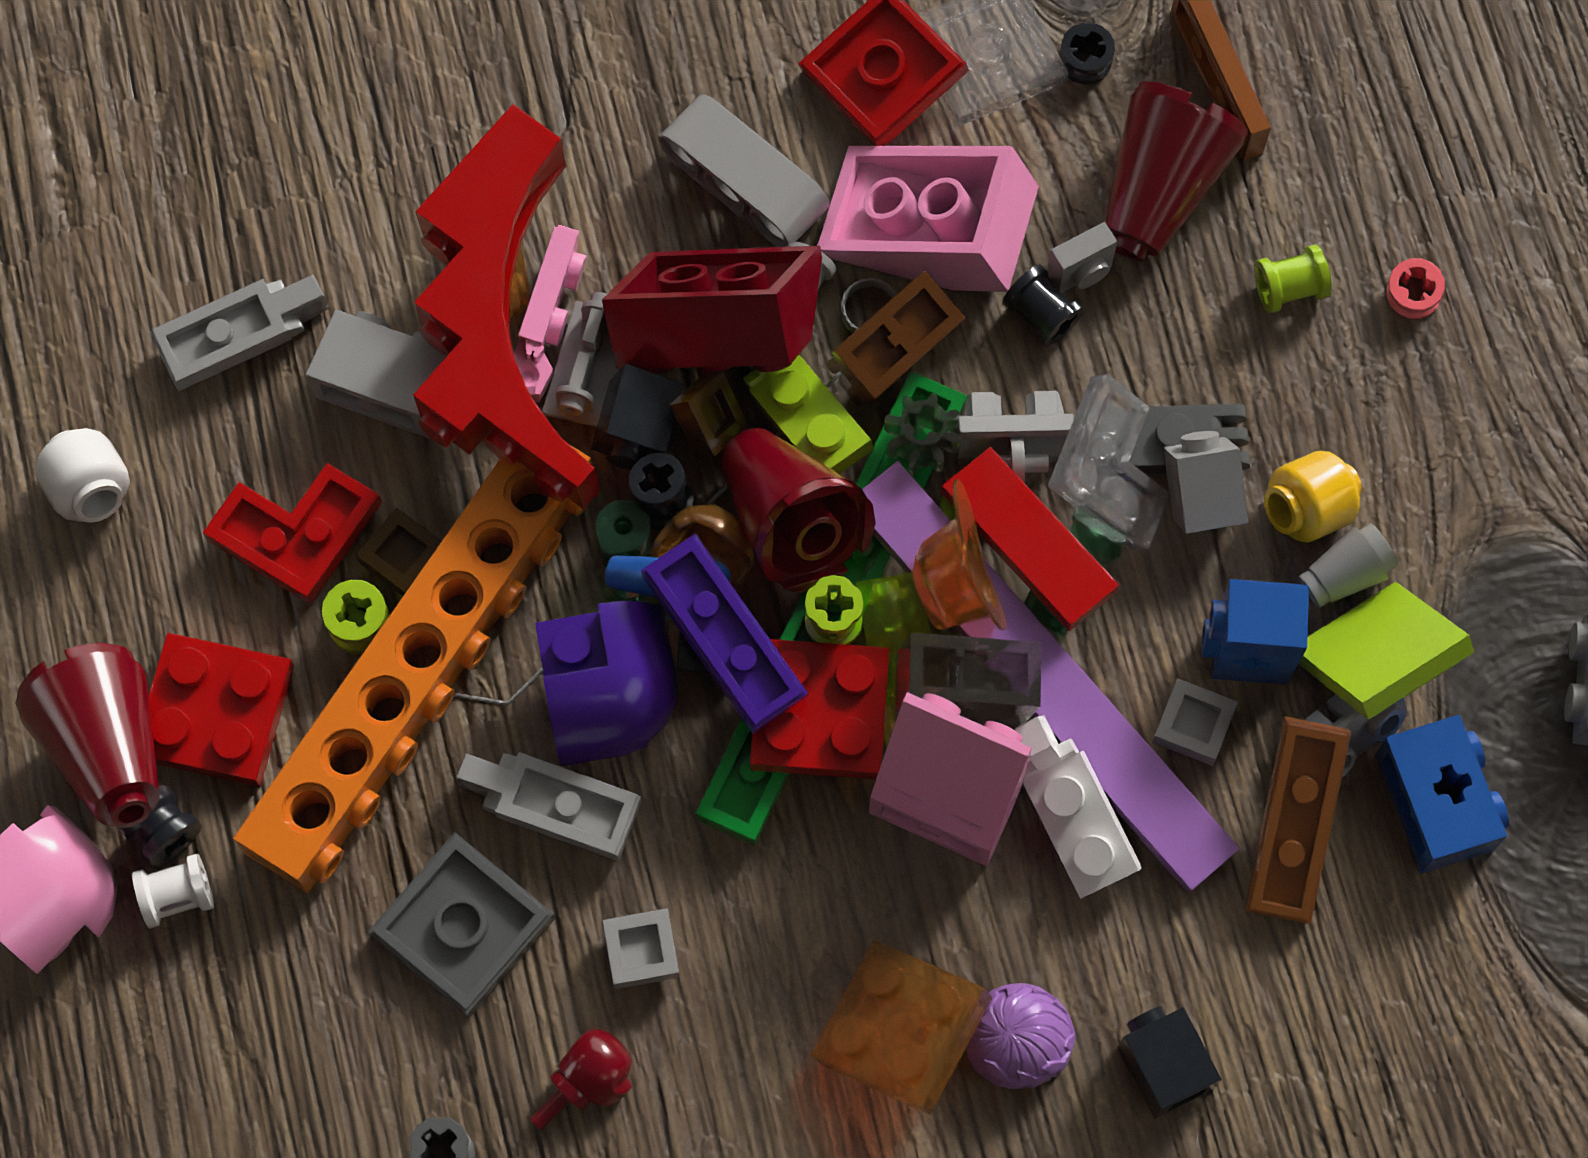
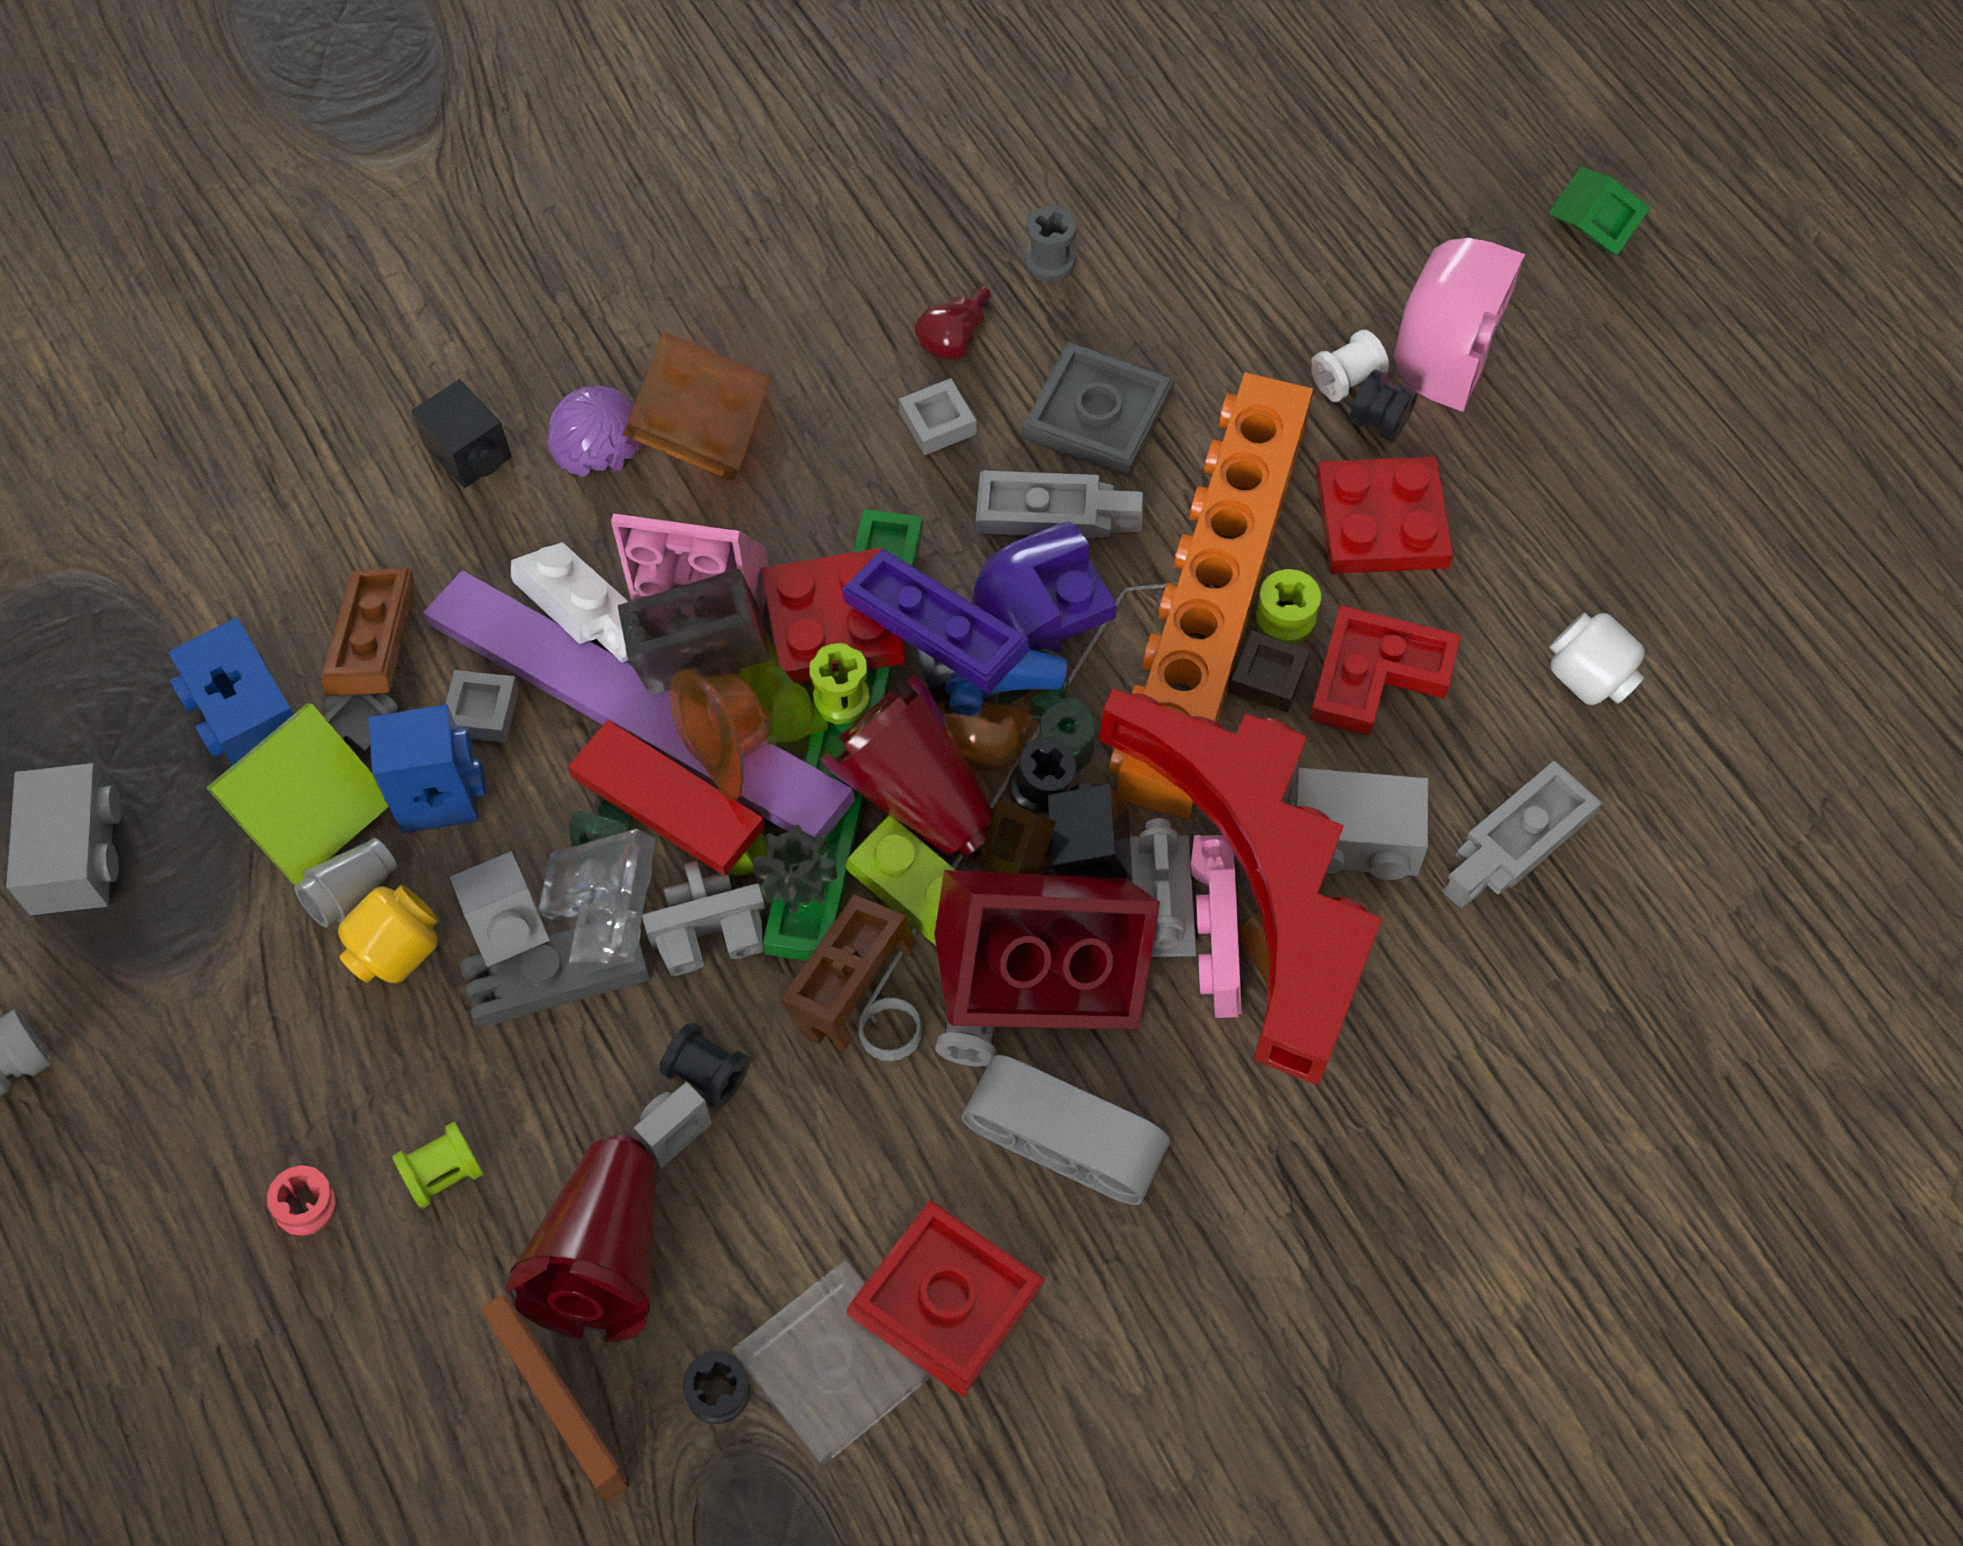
camera: 165 degrees right, 10 degrees down
(96, 729) = (1460, 420): dark red cone -> none
(932, 211) = (849, 1130): bright pink slope -> none

